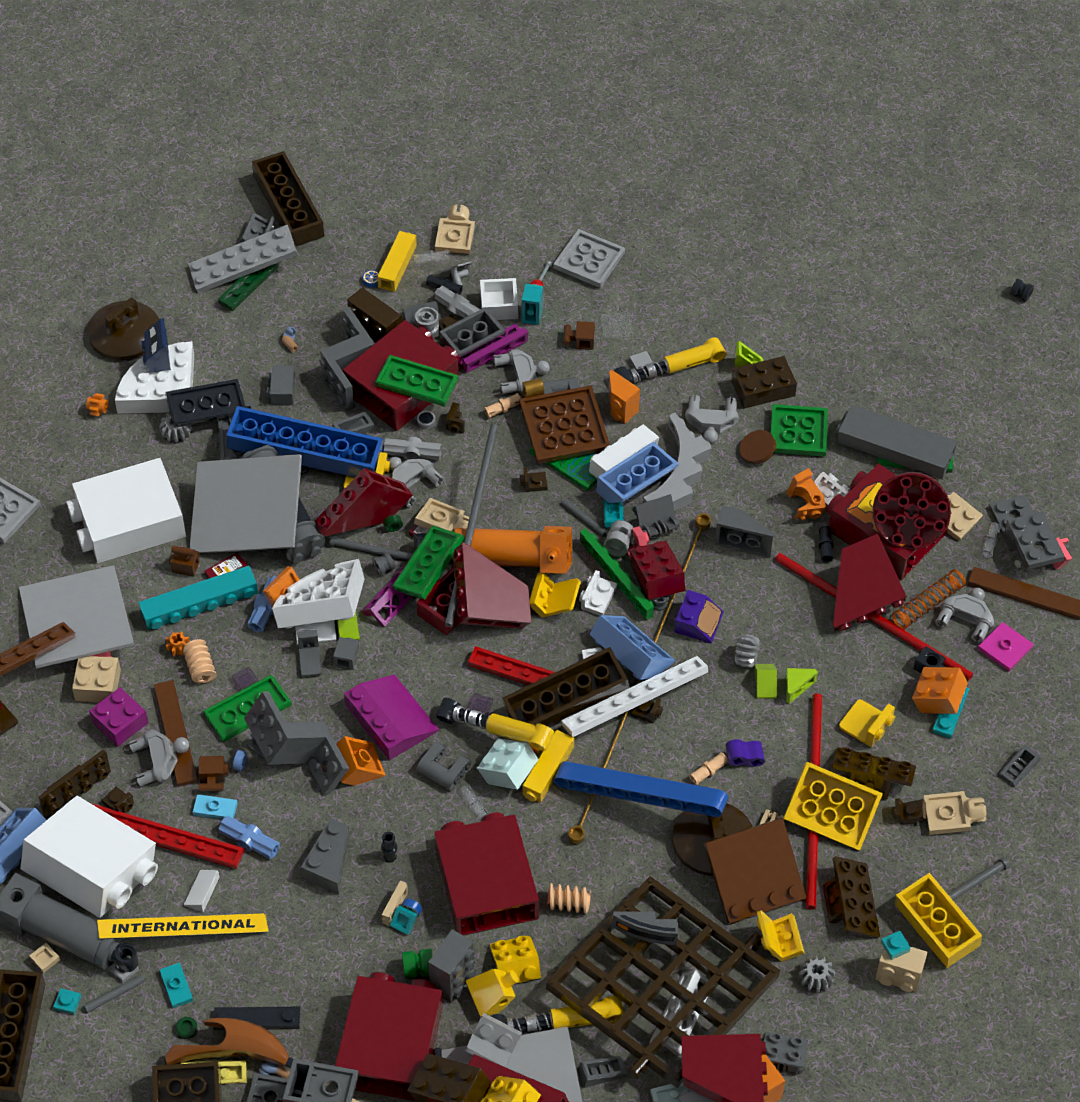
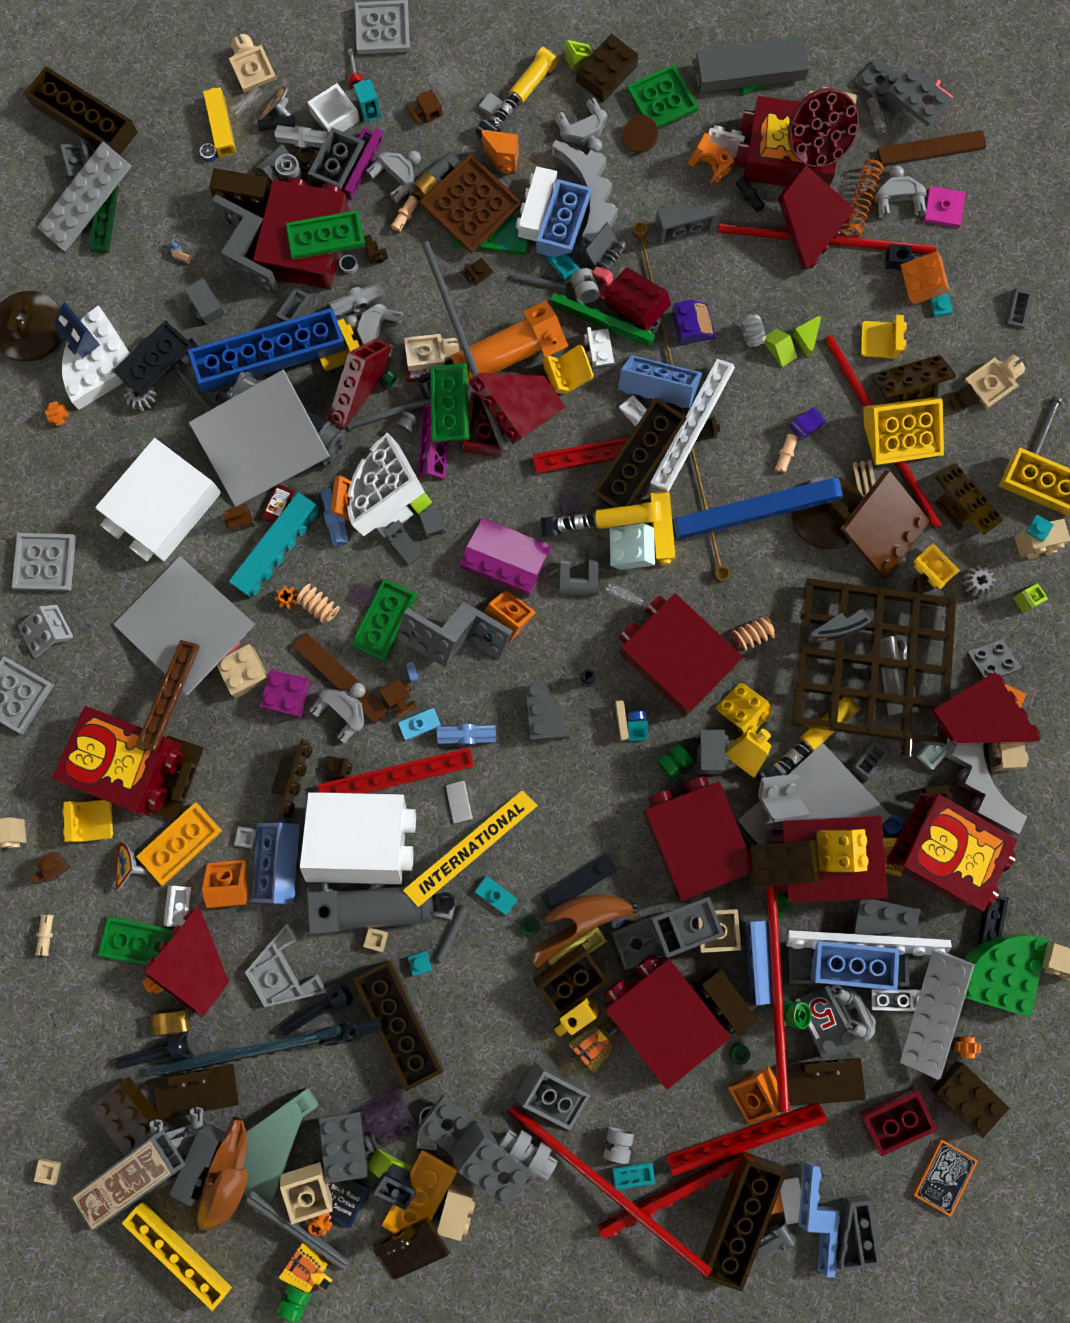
camera: 30 degrees left, 25 degrees up
(859, 1015) = (1030, 598): none -> lime slope

